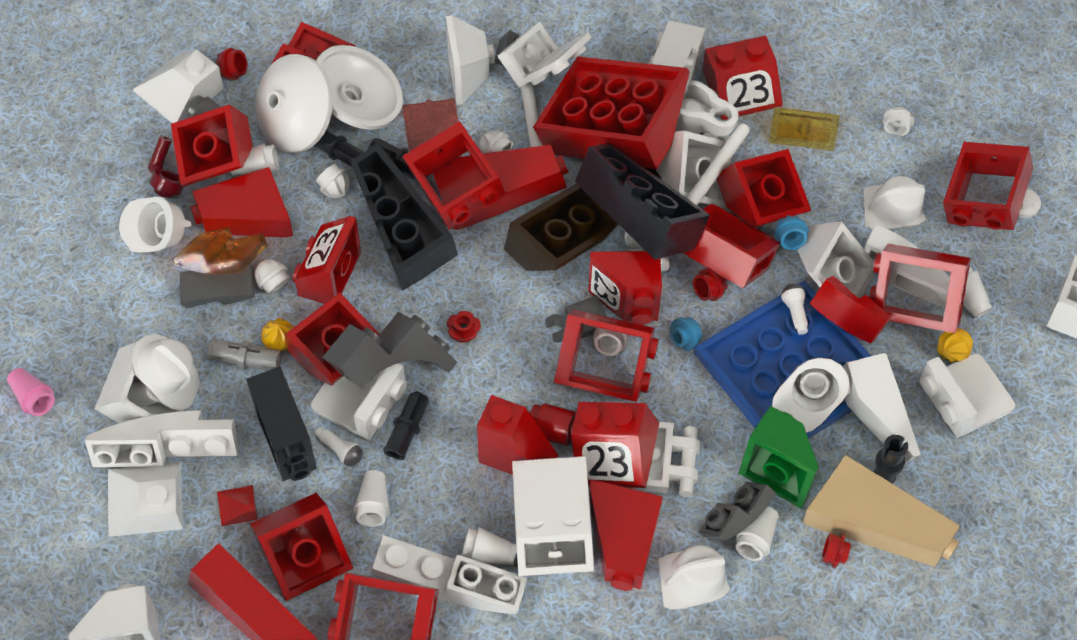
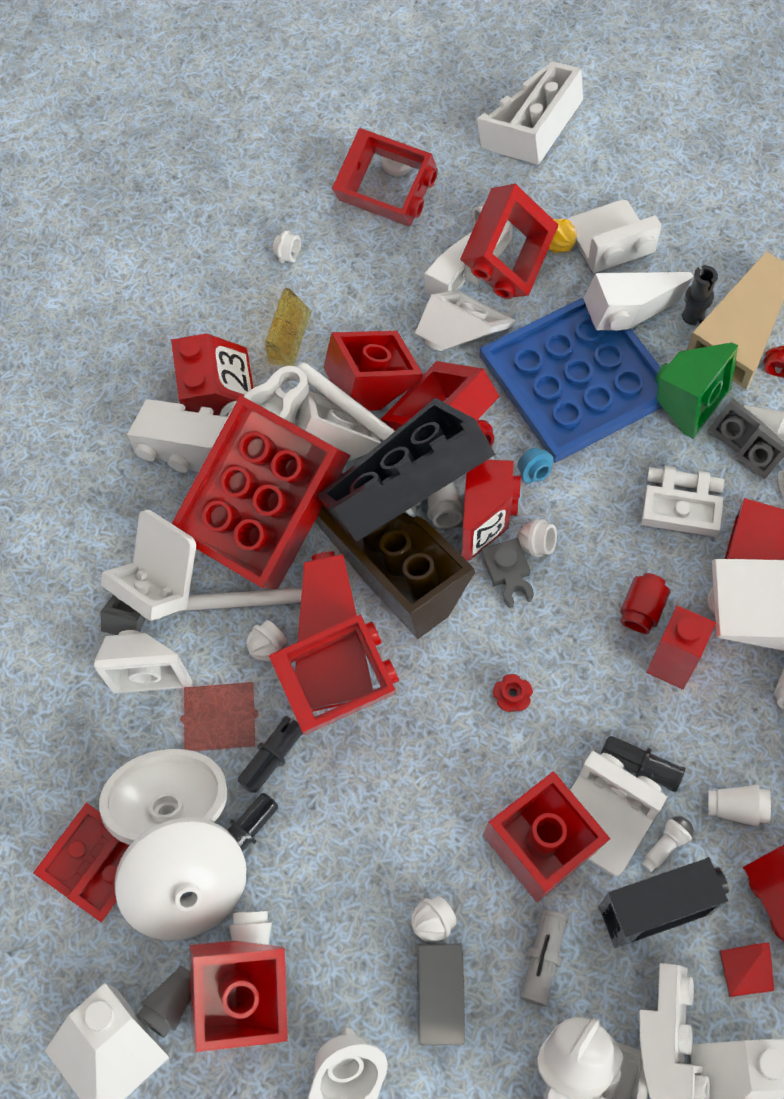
camera: 80 degrees left, 5 degrees up
(165, 182) = (268, 1068): dark red plate -> none
(219, 253) = (400, 986): clear orange slope -> none
(232, 63) = (84, 973): red plate -> none
(245, 205) = (323, 955): red slope -> none
(274, 333) = (515, 914): yellow plate -> none
(328, 260) = (423, 843): red slope -> none
(334, 182) = (295, 837): white plate -> none
(364, 354) = (589, 787): dark grey arch -> none
(406, 224) = (369, 751): black wedge -> none
(569, 350) = (542, 555): red window -> none
(616, 441) = (681, 539): red slope -> none
(791, 232) = (428, 347): dark azure plate -> none
(793, 296) = (507, 356): white piece -> none
(812, 391) = (626, 348): white piece -> none
(853, 314) = (528, 309): red slope -> none
(894, 203) = (386, 265): white piece -> none

